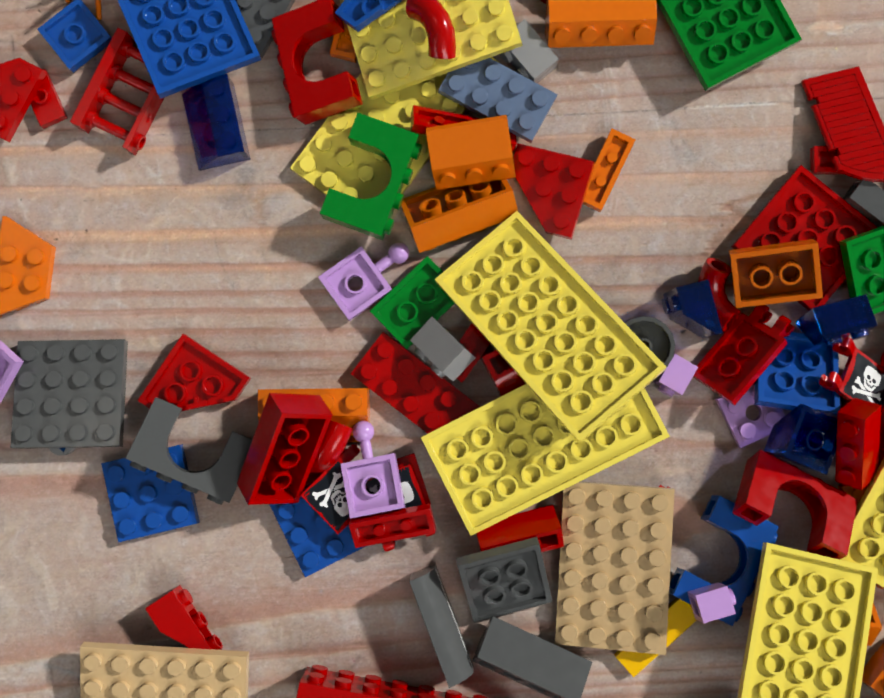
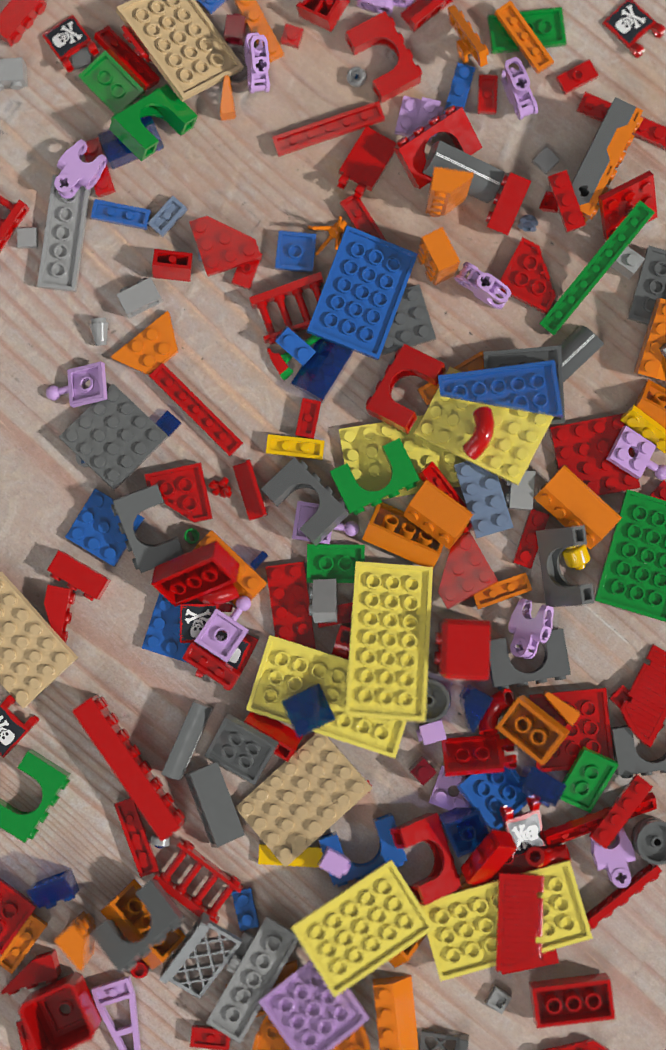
camera: 45 degrees right, 0 degrees up
(114, 326) = (168, 423): none -> clear blue tile
(127, 285) = (196, 409): none -> red plate
(164, 125) = (295, 345): none -> blue plate
(167, 156) = (280, 361): none -> piece
(169, 568) = (78, 575): none -> red brick
(228, 339) = (221, 487): none -> red plant
(247, 410) = (195, 534): none -> green hinge
(249, 186) = (308, 418): none -> red plate
(260, 313) = (250, 490): none -> red panel
(263, 227) = (295, 447): none -> yellow plate
(293, 253) = (295, 476): none -> dark grey arch
(337, 373) = (259, 560): none -> clear blue tile
(535, 474) = (308, 710): none -> clear blue slope
(584, 93) = (528, 543): none -> red plate
(629, 259) = (463, 649): none -> red plate
(644, 64) = (576, 557): none -> yellow head
(659, 115) = (557, 589): none -> dark grey arch
(674, 181) = (529, 630): none -> lavender piece
(704, 422) = (422, 770): none -> dark red brick
(728, 192) = (553, 666): none -> dark grey arch
(786, 224) = (567, 712): none -> orange slope

